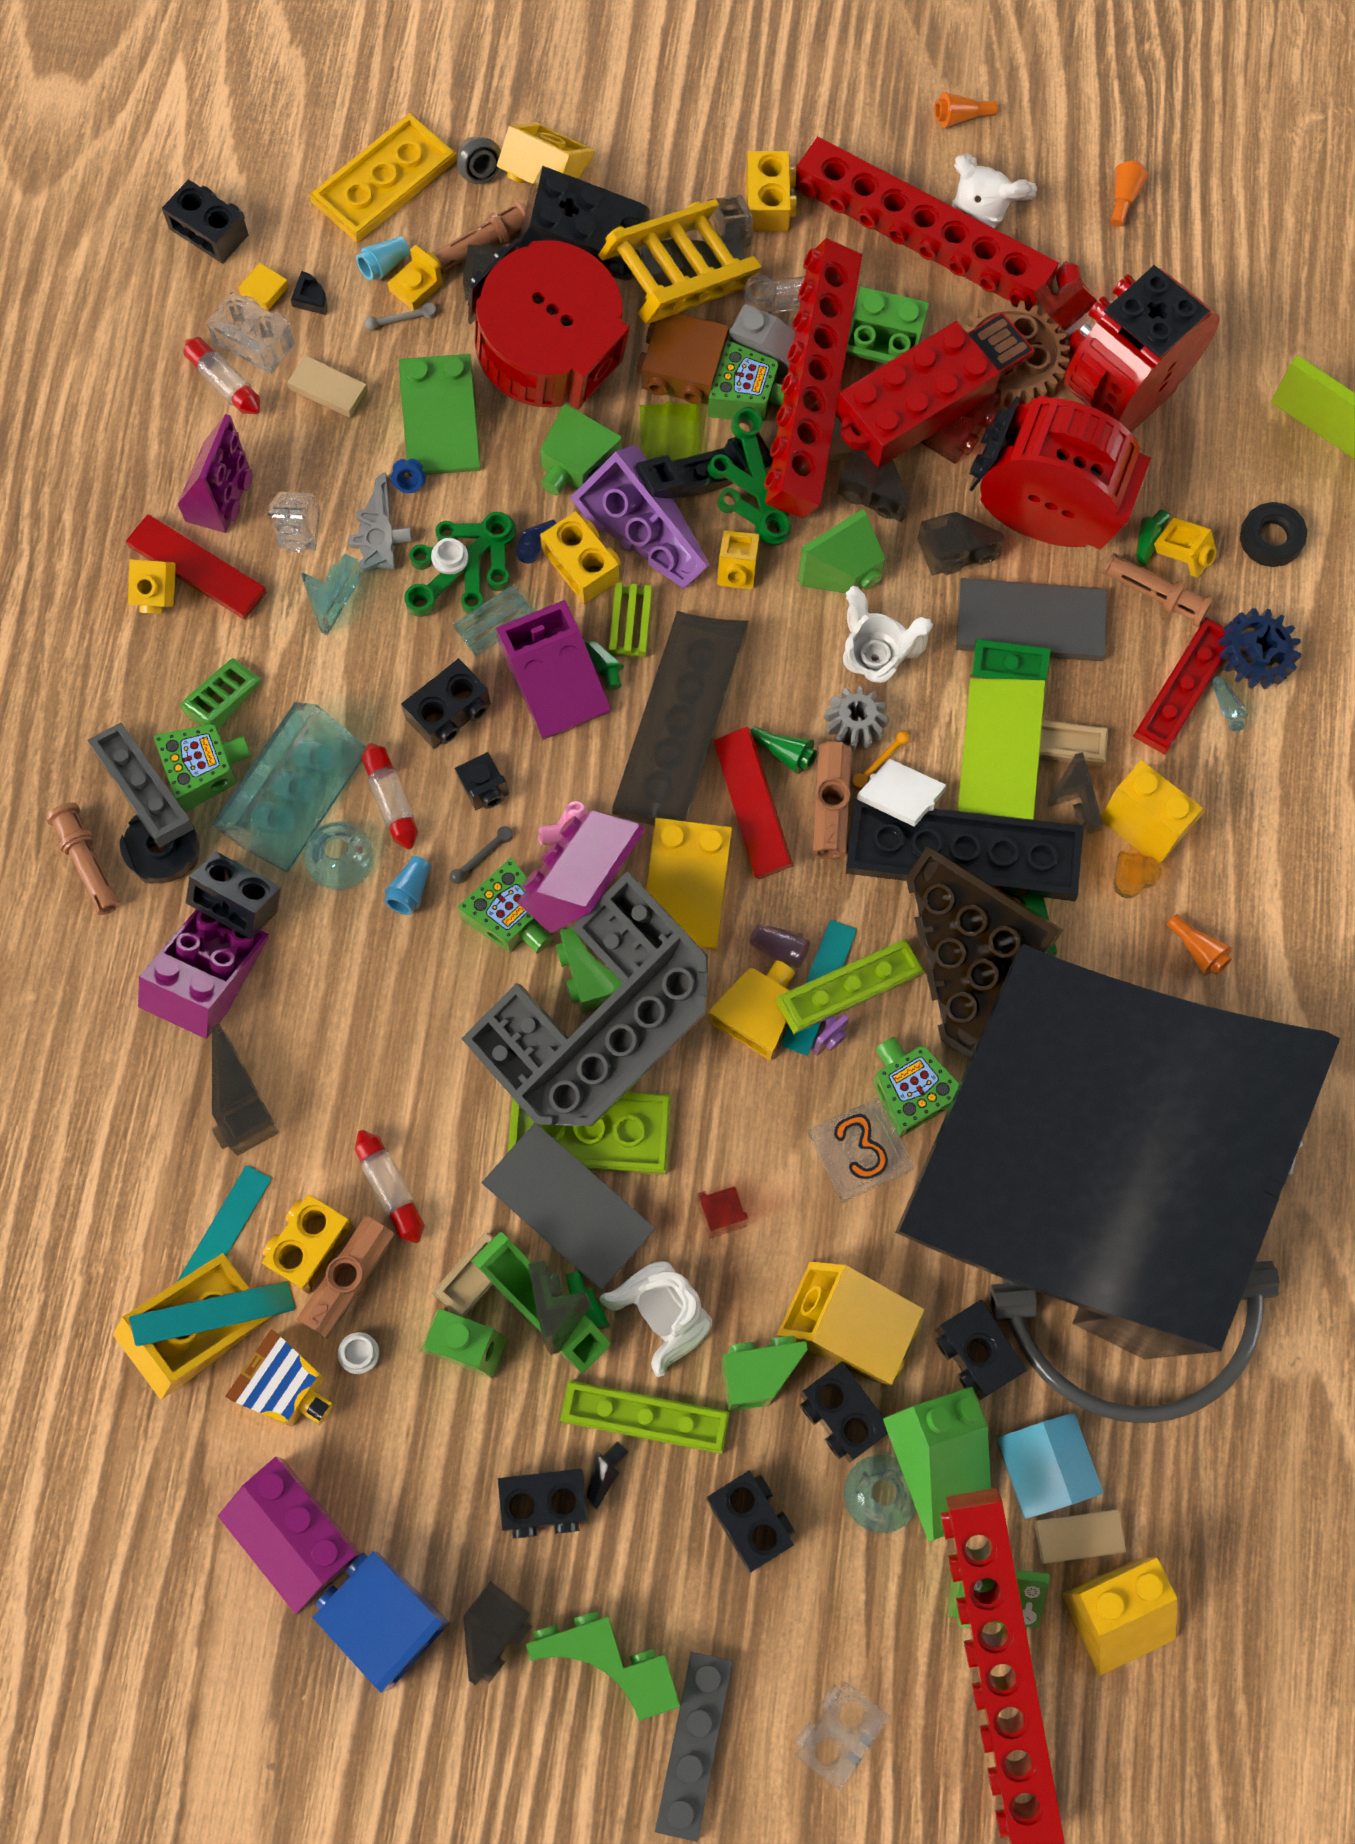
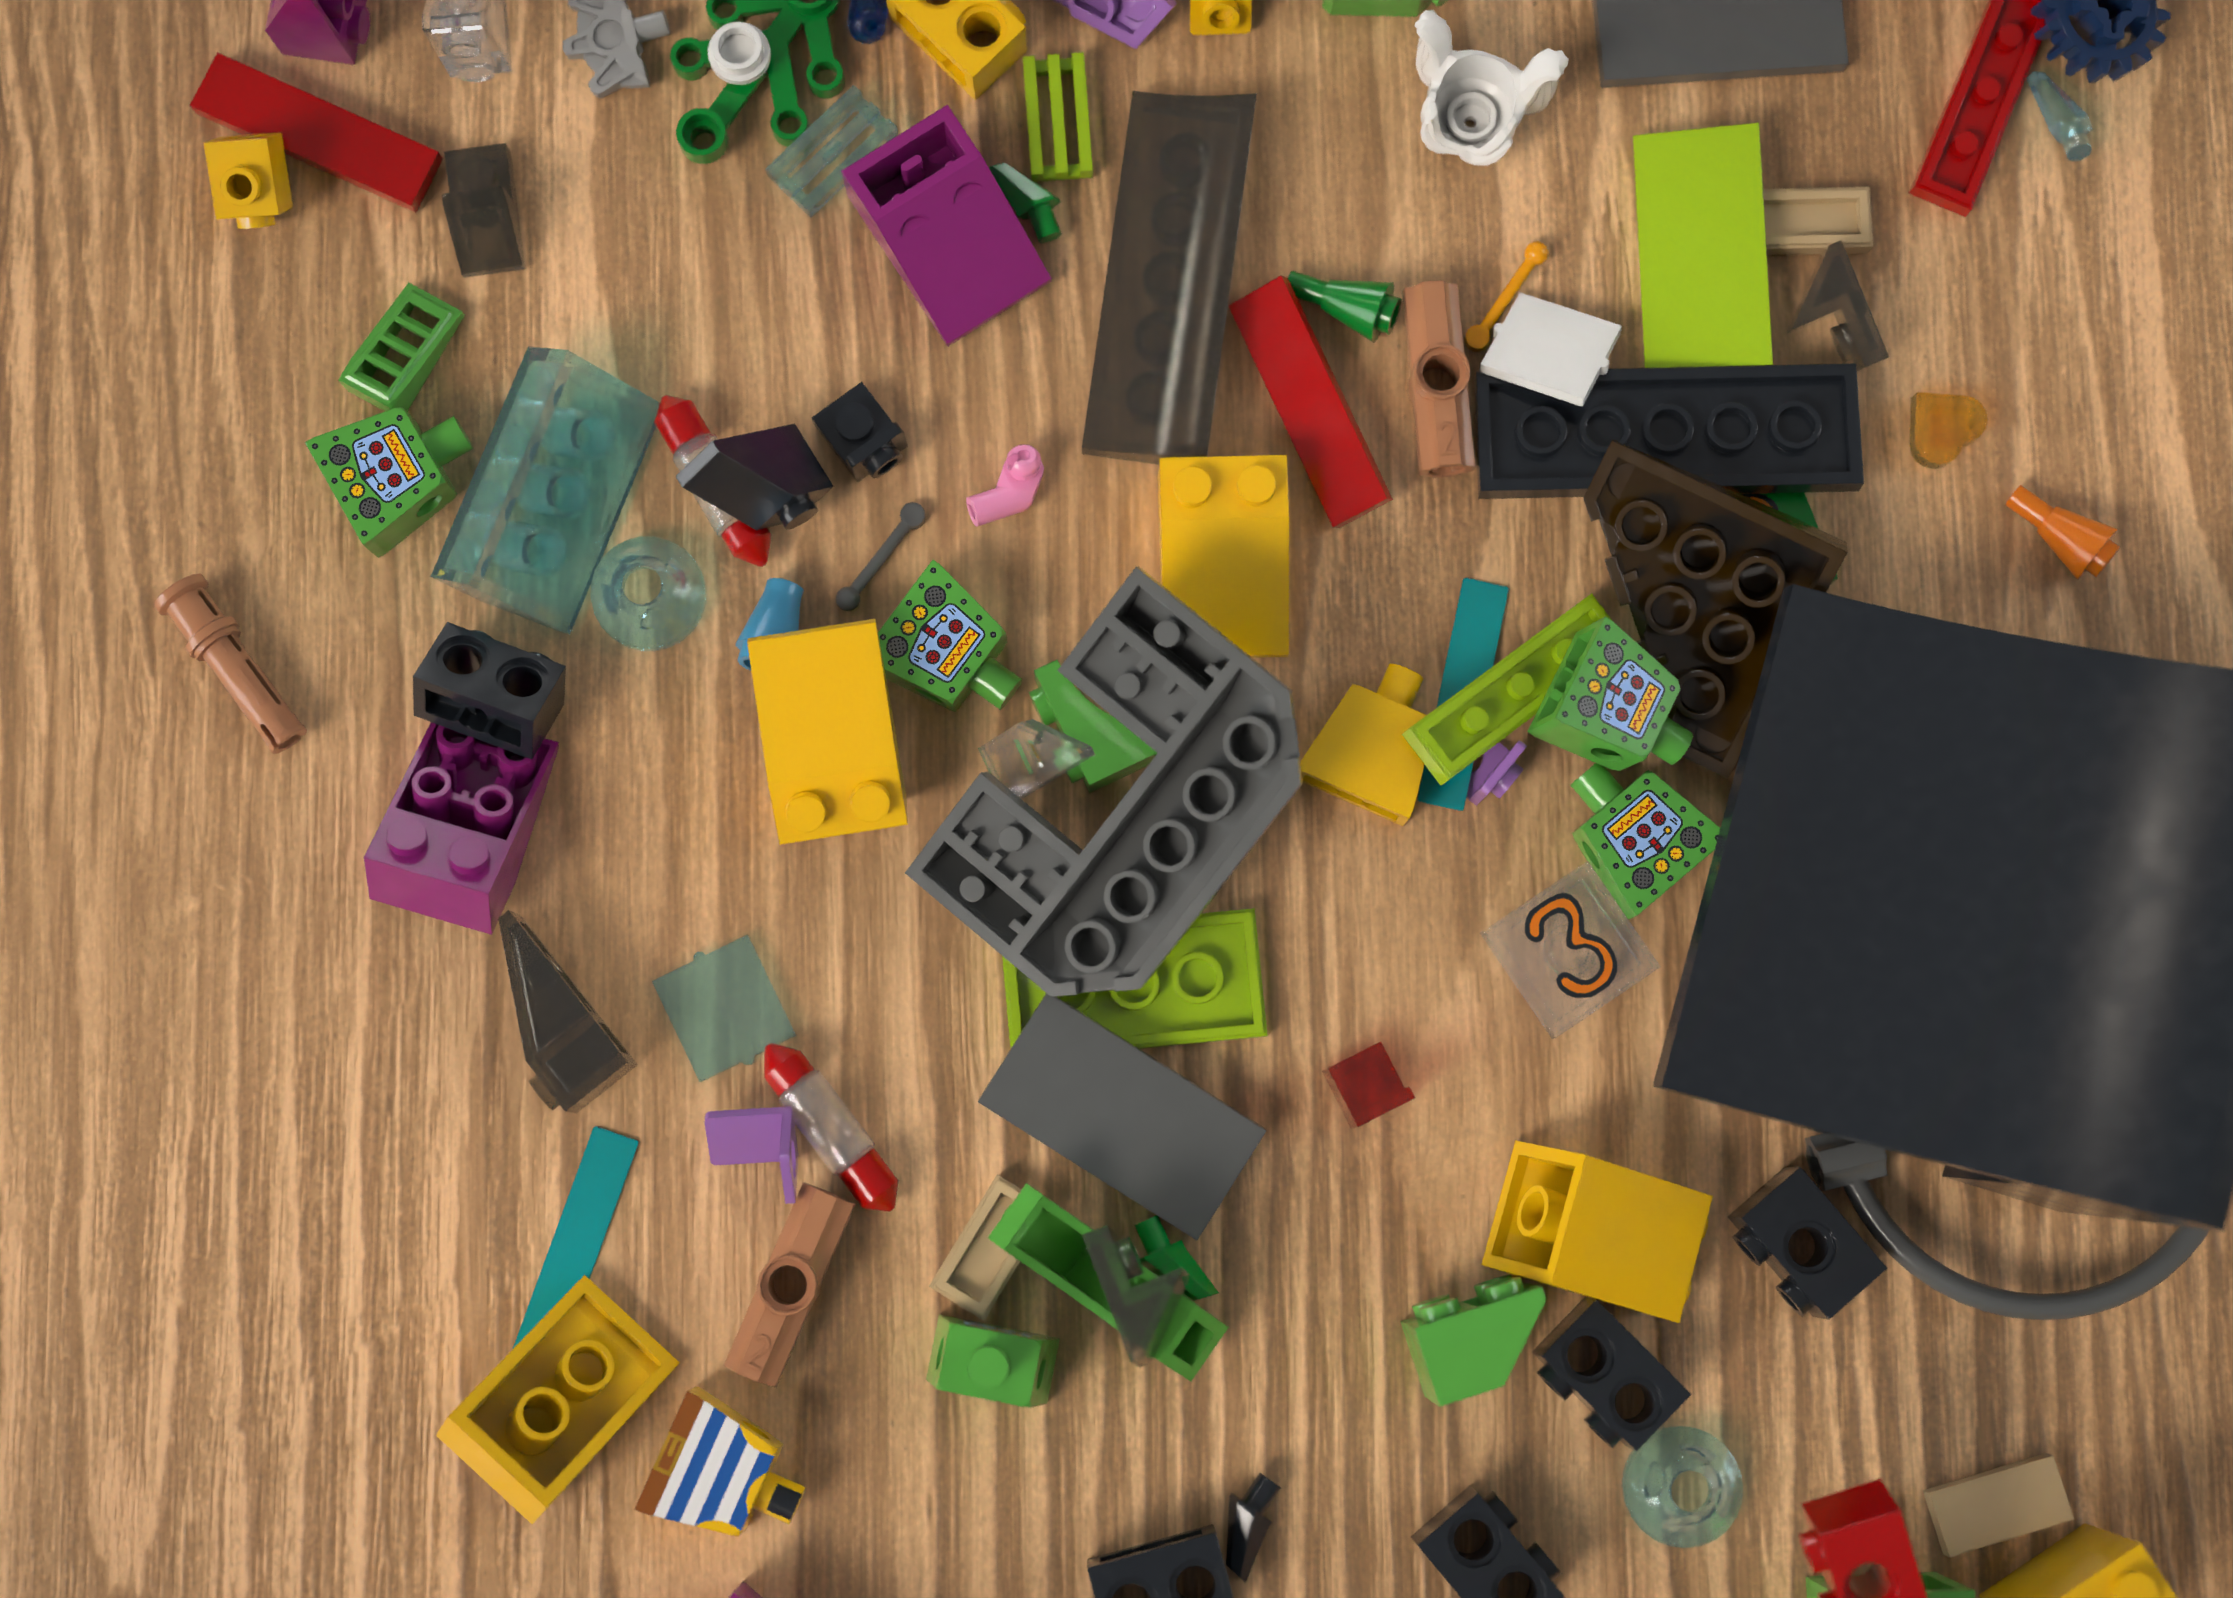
camera: 10 degrees left, 10 degrees up
(140, 785) = (300, 528): dark grey plate -> none
(157, 867) = (316, 614): black plate -> none
(211, 1313) = (586, 1381): teal sticker -> none
(284, 624) = (483, 210): none -> clear smoke slope
(316, 1248) = (731, 1248): yellow brick -> none
(331, 597) = (552, 156): clear light blue slope -> none
(338, 1106) = (724, 1008): none -> clear light blue piece
(342, 1185) = (755, 1137): none -> medium lavender bracket
(358, 1353) = (830, 1399): white plate -> none
(416, 794) = (759, 477): none -> black slope
(429, 947) = (827, 731): none -> yellow slope
(439, 698) = (765, 302): black brick -> none
(550, 982) = (1032, 756): none -> clear tile
(578, 868) = (1051, 564): slope -> none
(644, 1417) = (1297, 1427): lime tile -> none
(668, 1307) = (1305, 1250): white hair -> none
(781, 944) = (1392, 634): cone -> none
(860, 705) = (1478, 245): light grey gear -> none
(905, 1001) = (1611, 702): none -> bright green torso
(941, 1453) = (1775, 1422): bright green slope -> none
(1009, 661) = (1694, 97): green plate -> none
(1049, 1465) = (1937, 1404): medium azure slope -> none
(1150, 812) = (1965, 324): yellow slope -> none

